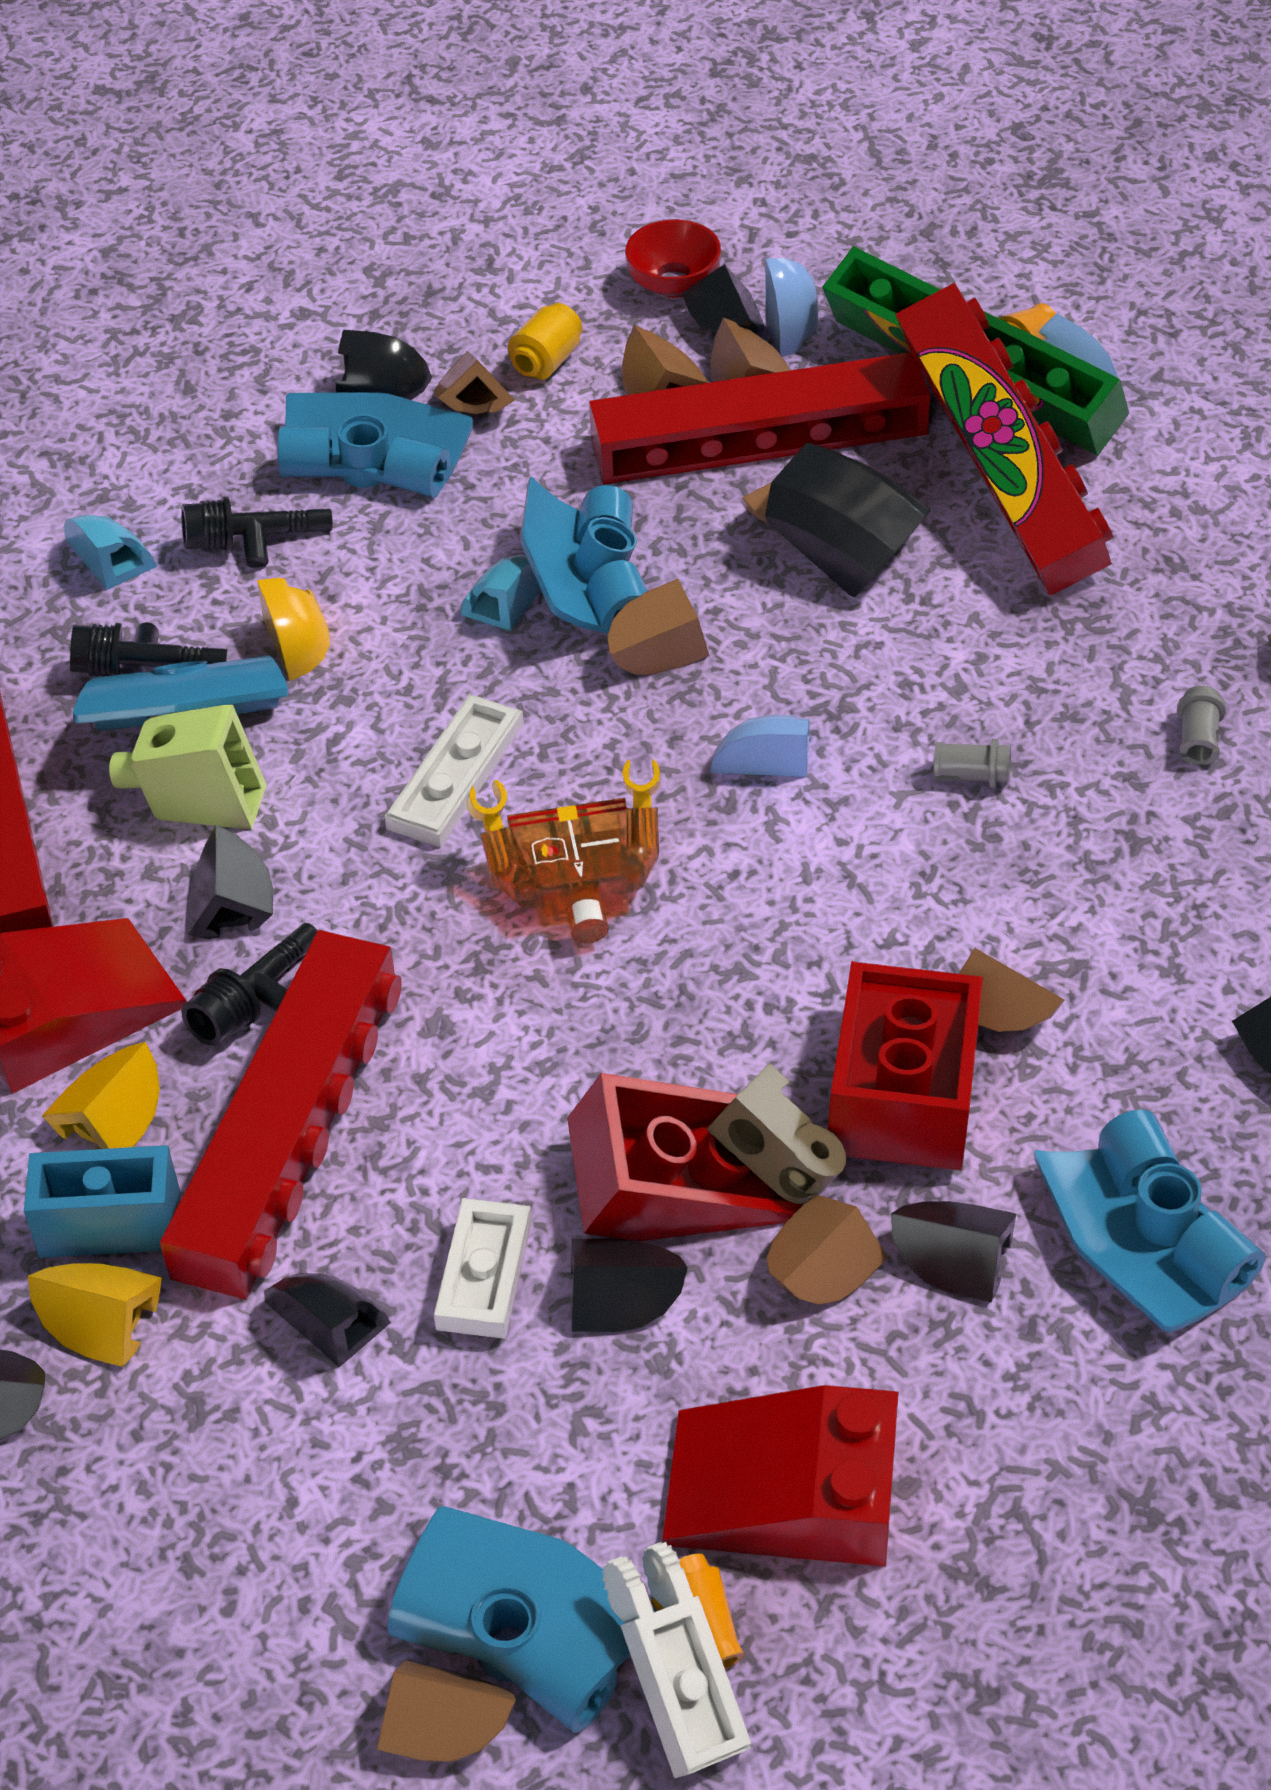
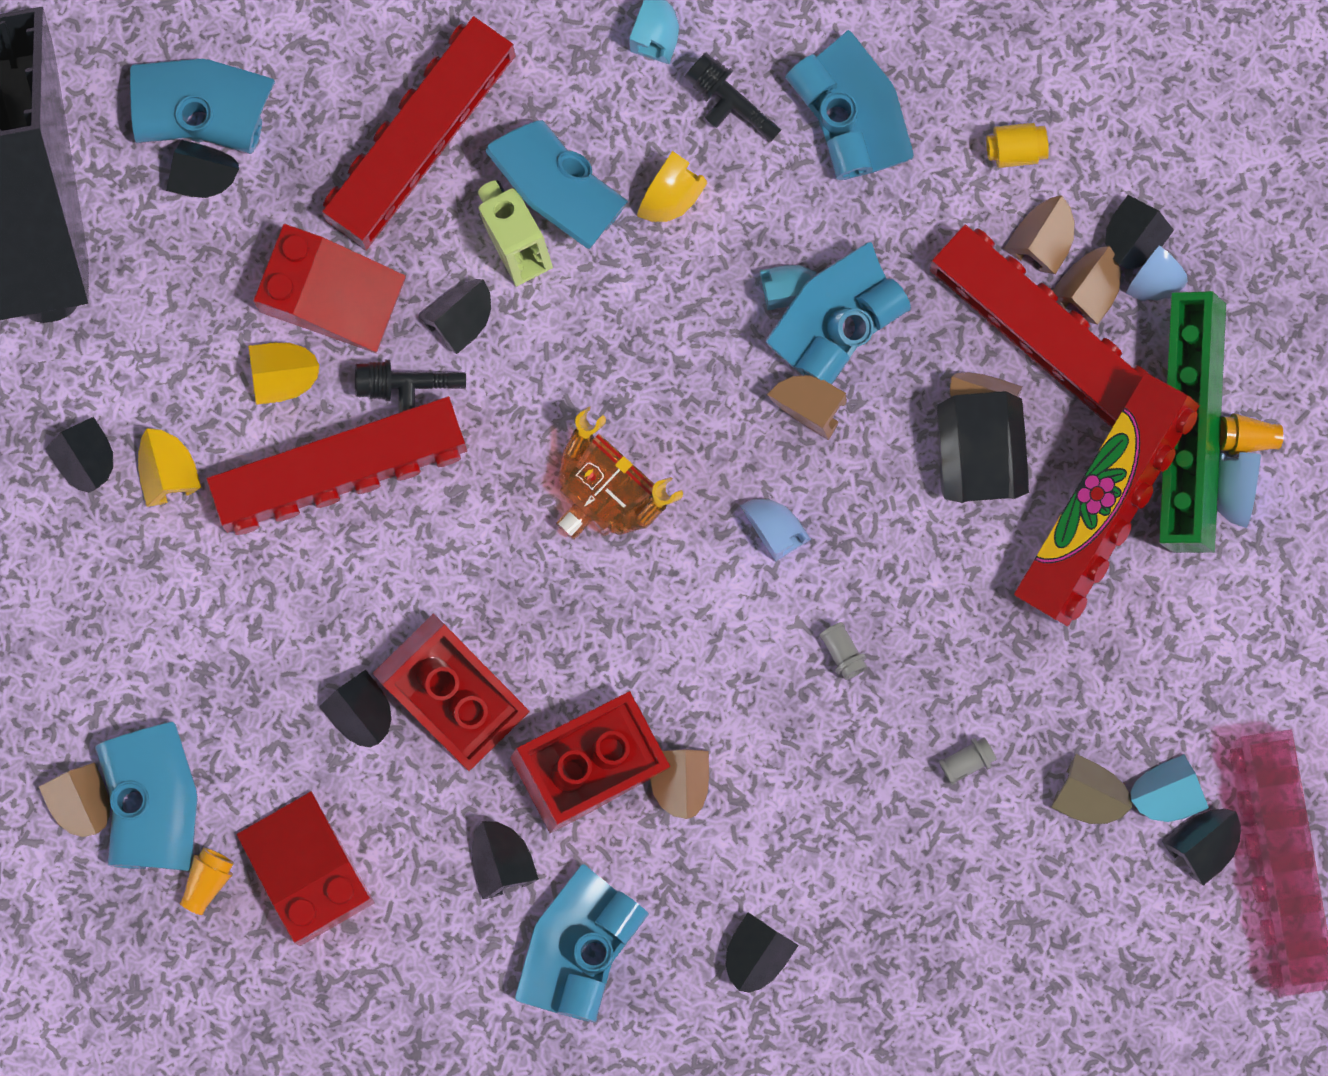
camera: 55 degrees right, 30 degrees up
(100, 1200) = (213, 426): dark azure brick -> none
(102, 651) = (569, 102): black piece -> none
(327, 1313) = (243, 580): black brick -> none
(381, 365) = (915, 65): black brick -> none
(458, 760) = (634, 365): white tile -> none
(471, 388) = (944, 132): medium nougat brick -> none
(483, 1268) = (319, 638): white plate -> none
(672, 247) = (1161, 146): red piece -> none
(676, 1661) = (162, 894): white hinge -> none
(779, 1139) = (487, 731): dark tan leg -> none
(824, 1251) = (444, 797): medium nougat brick -> none

